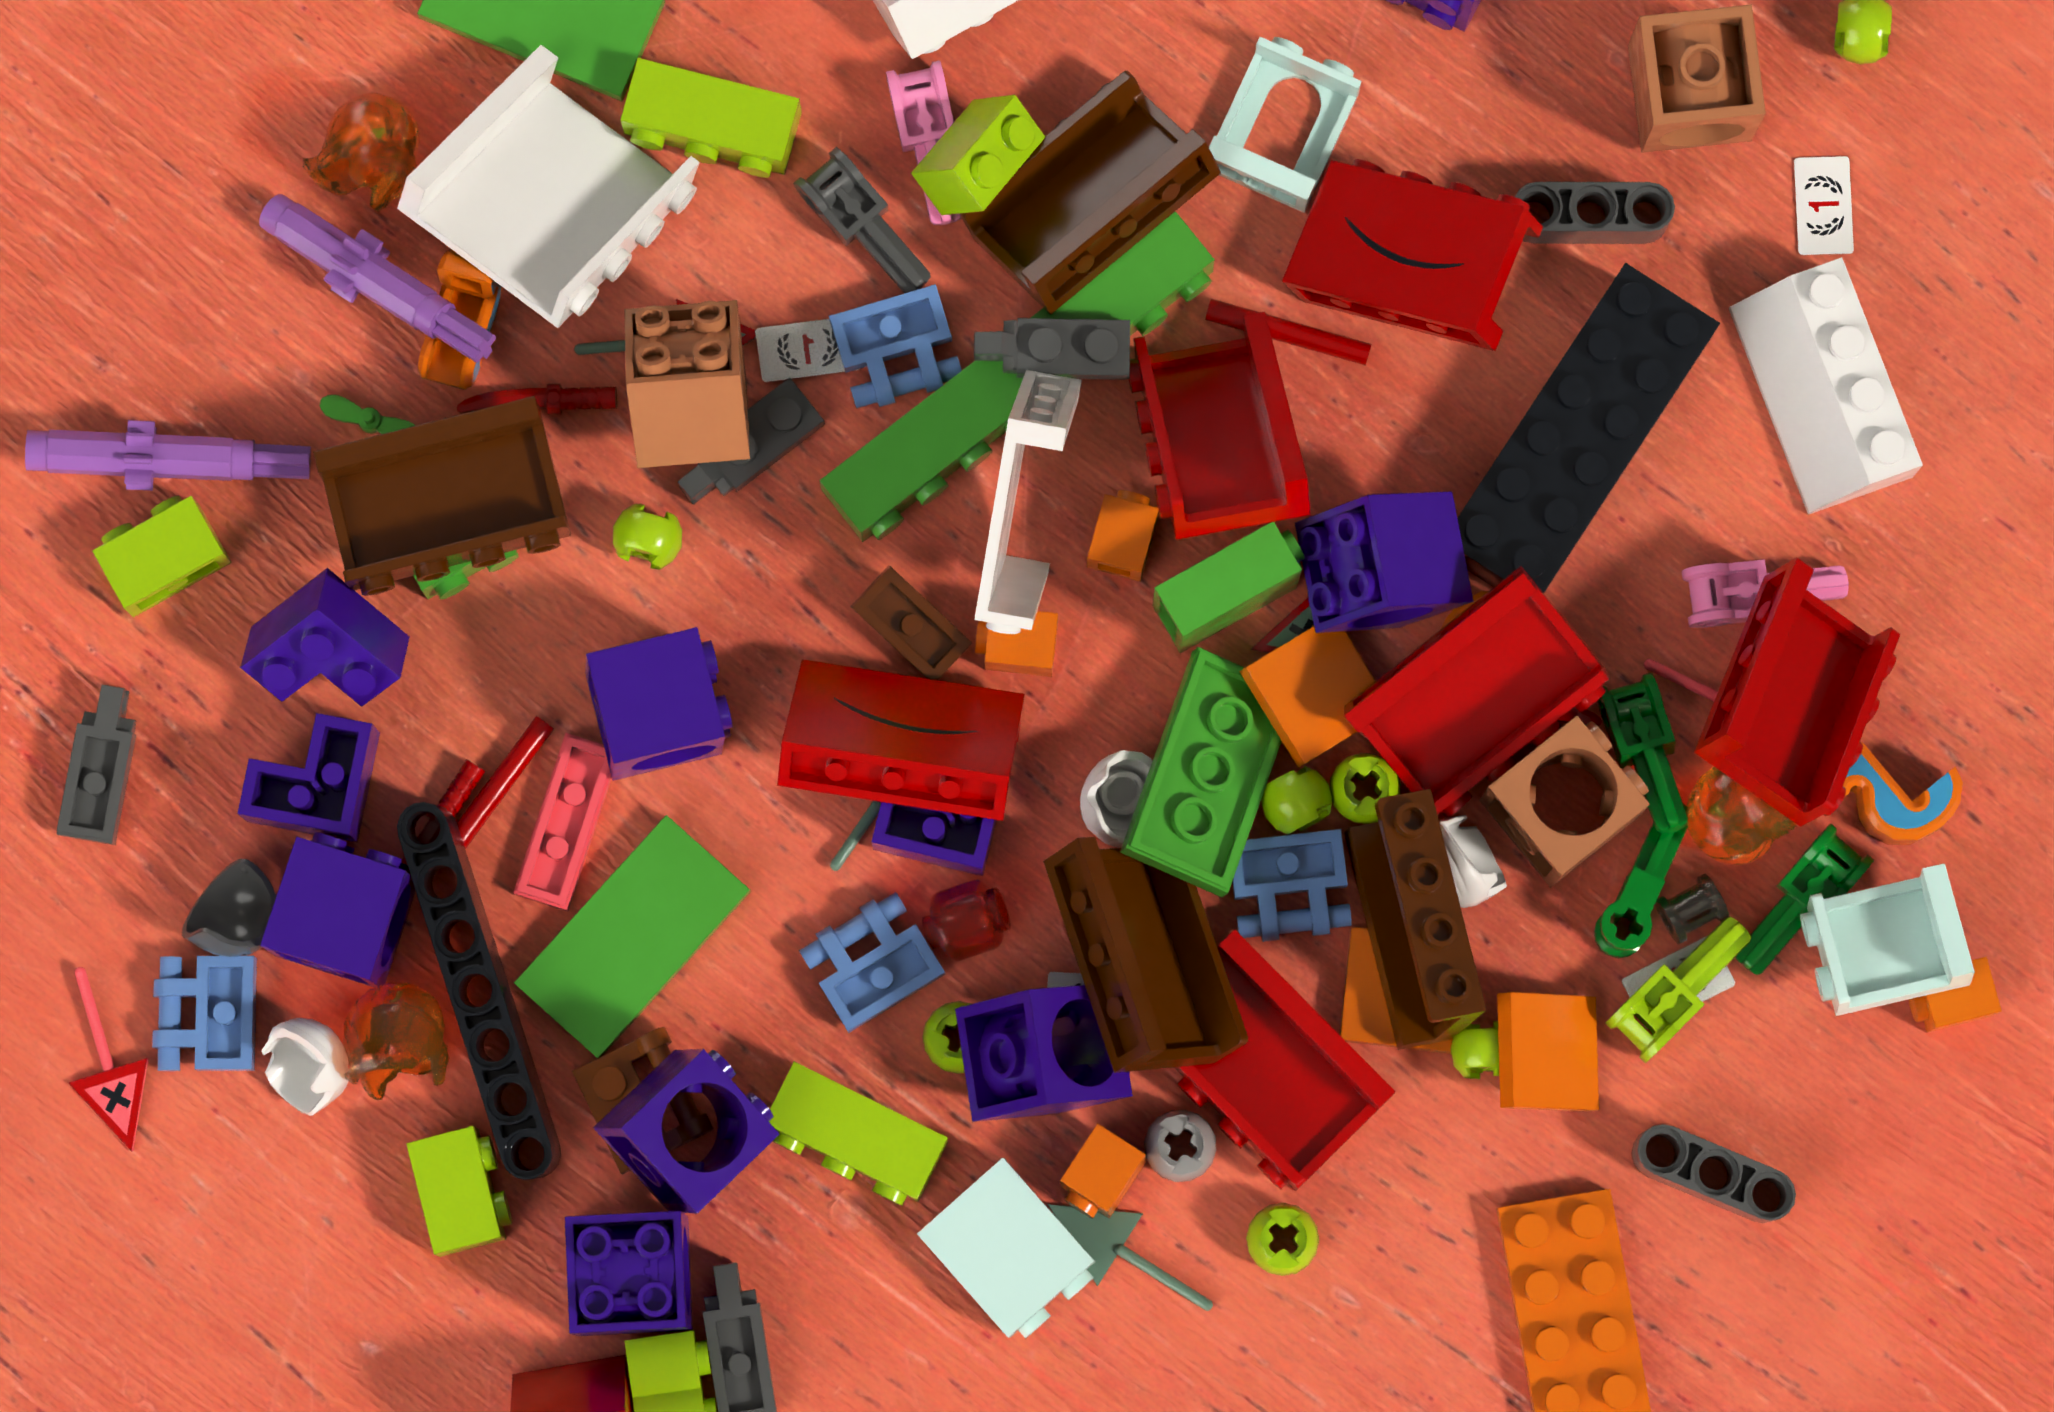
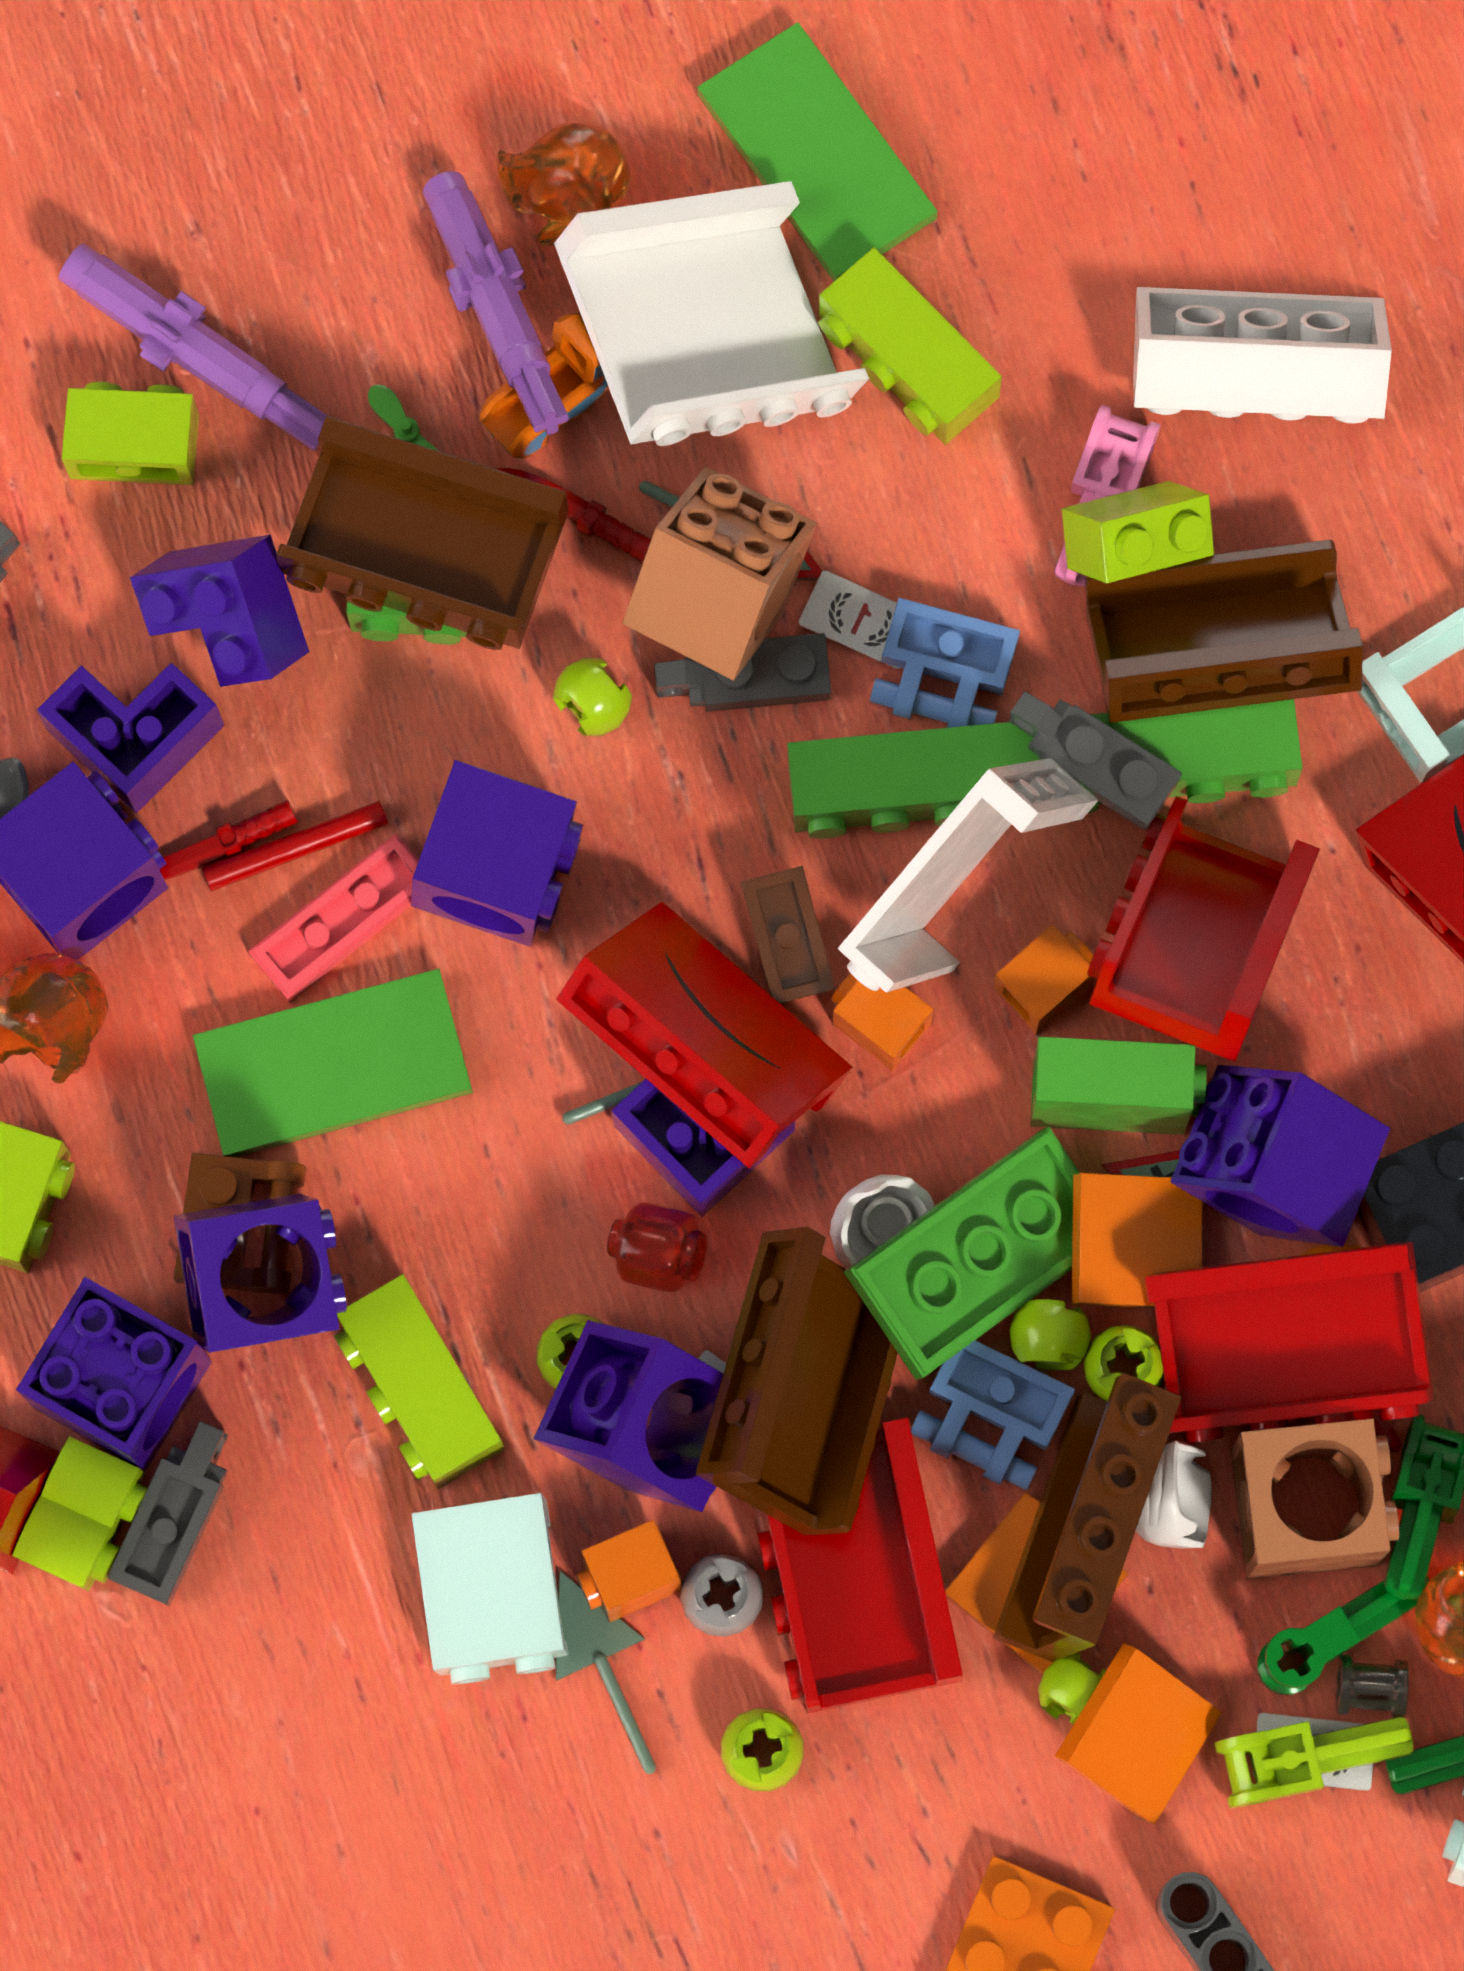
camera: 35 degrees right, 5 degrees down
(458, 970) = (163, 1049): black beam -> none
(855, 212) = (987, 518): dark grey connector -> none
(879, 977) = (542, 1249): medium blue plate -> none
(1293, 333) = (1336, 890): red bar -> none

